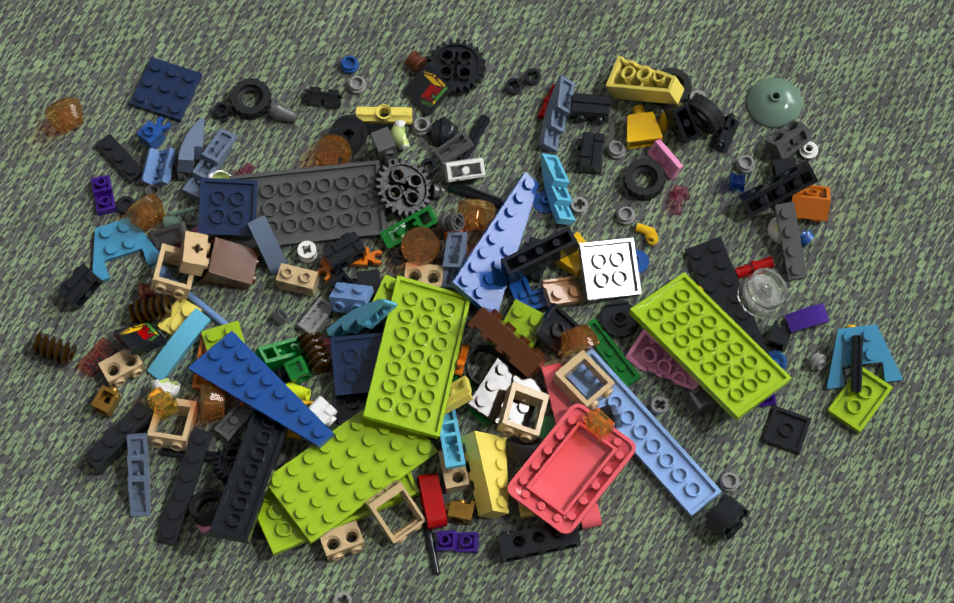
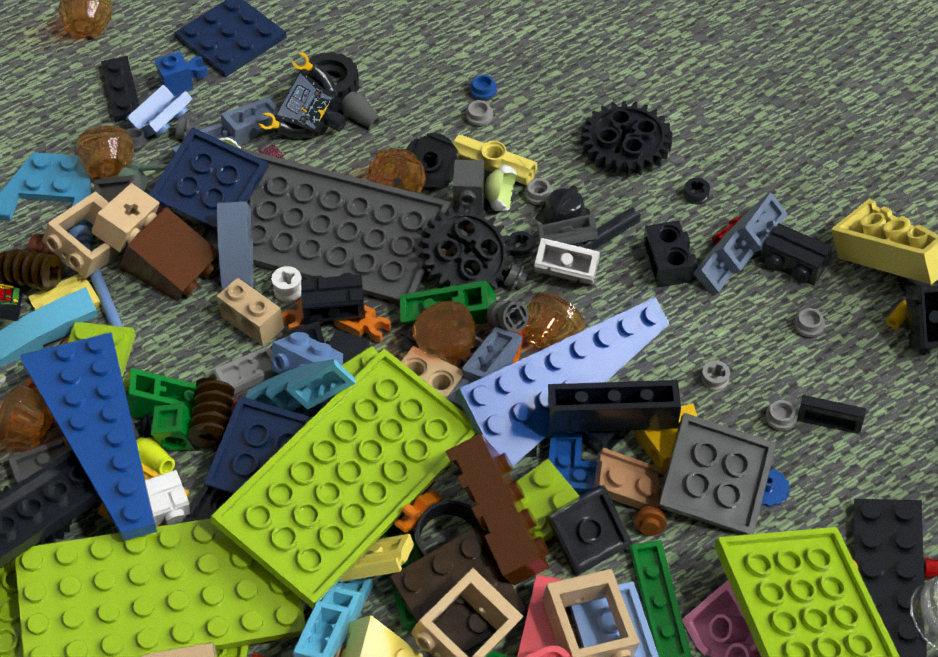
camera: 25 degrees right, 15 degrees down
(103, 195) = (72, 120): dark purple slope -> none
(191, 147) = (213, 100): sand blue slope -> none
(222, 107) = (281, 81): black plate -> none
(252, 126) = (309, 105): none -> torso
(279, 316) = (194, 350): dark grey hinge -> none
(315, 97) = (434, 114): black hinge -> none
(415, 61) = (573, 113): copper wheel -> none
(428, 89) = (572, 149): tile -> none
(473, 193) = (544, 283): black axle -> none
(514, 140) = (669, 253): none -> black brick
(531, 72) = (730, 182): black bush -> none
(541, 203) = (667, 352): blue piece -> none
(555, 187) = (689, 344): medium azure slope -> none
(577, 340) = (617, 552): clear orange piece -> none
(584, 309) = (650, 521): none -> dark orange plate
(591, 153) = (768, 312): black brick -> none
(616, 329) = (685, 569): black plate -> none
(642, 129) = (861, 309): yellow torso -> none
(649, 233) = (807, 453): yellow arm -> none
(651, 167) = (840, 356): black tyre -> none
(652, 204) = (831, 414): none -> black tile
(665, 158) = (879, 361): bright pink plate -> none
(680, 194) = (879, 419): clear pink piece -> none

